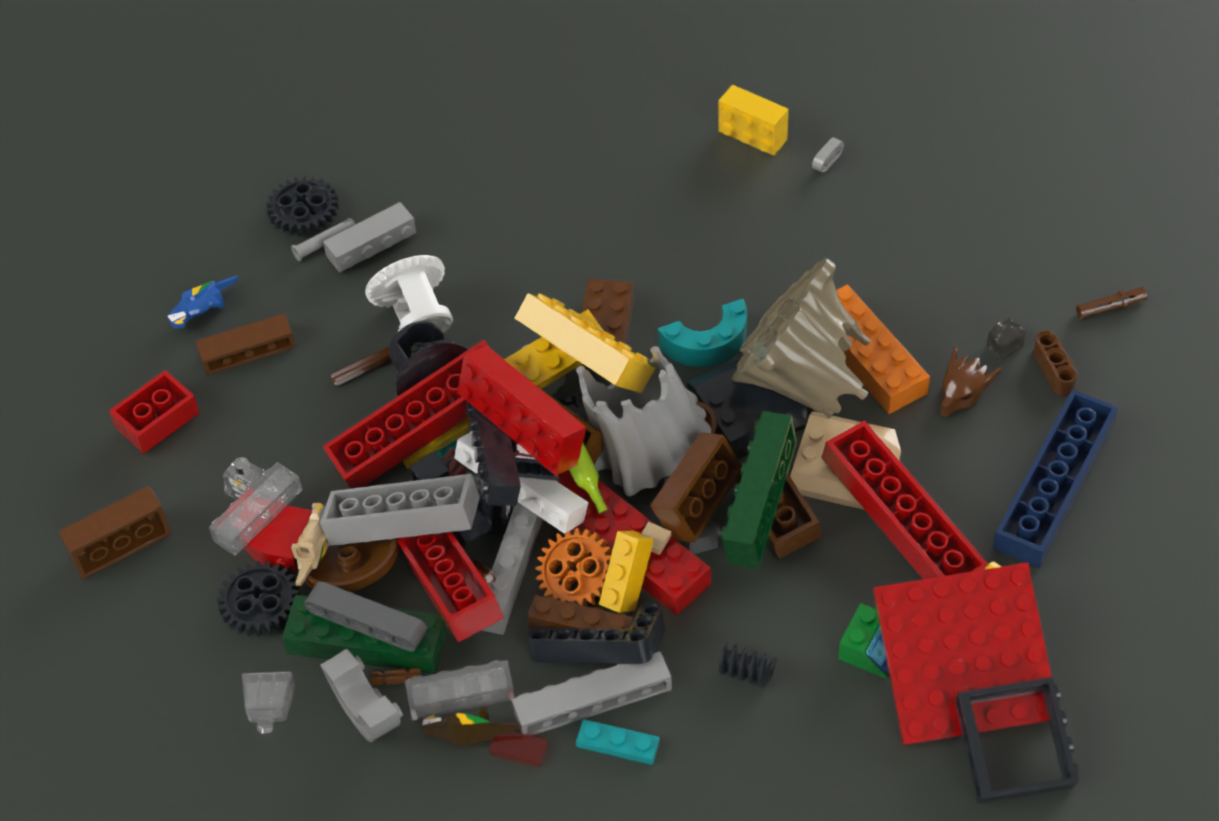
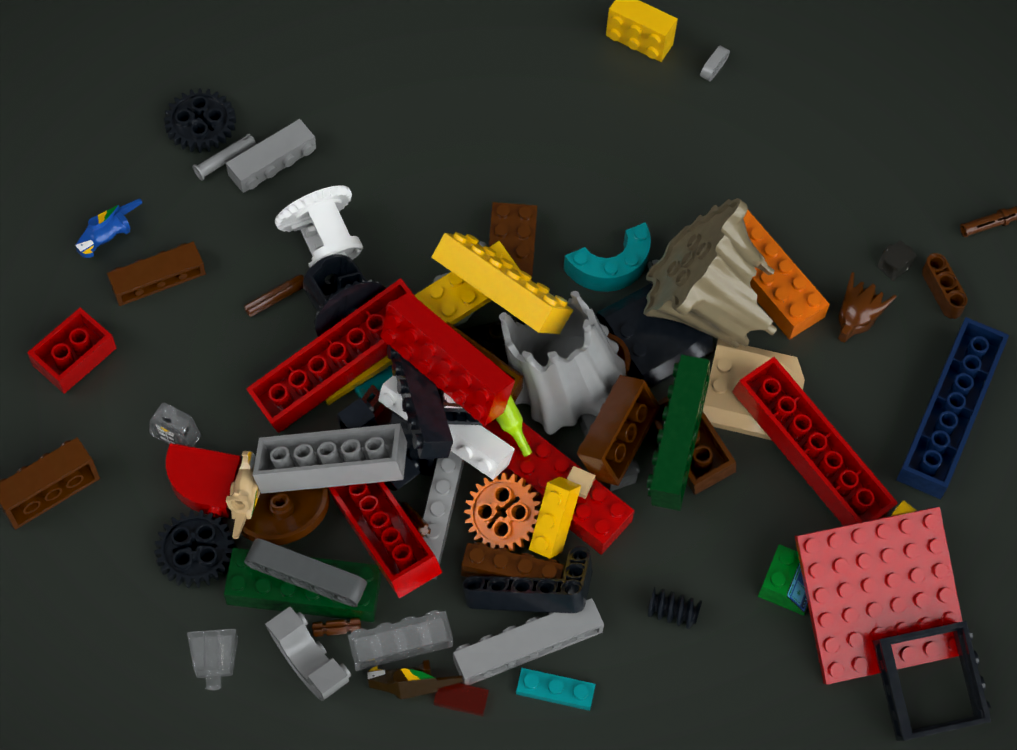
camera: 10 degrees left, 10 degrees up
(255, 508) = (185, 457): clear brick -> none

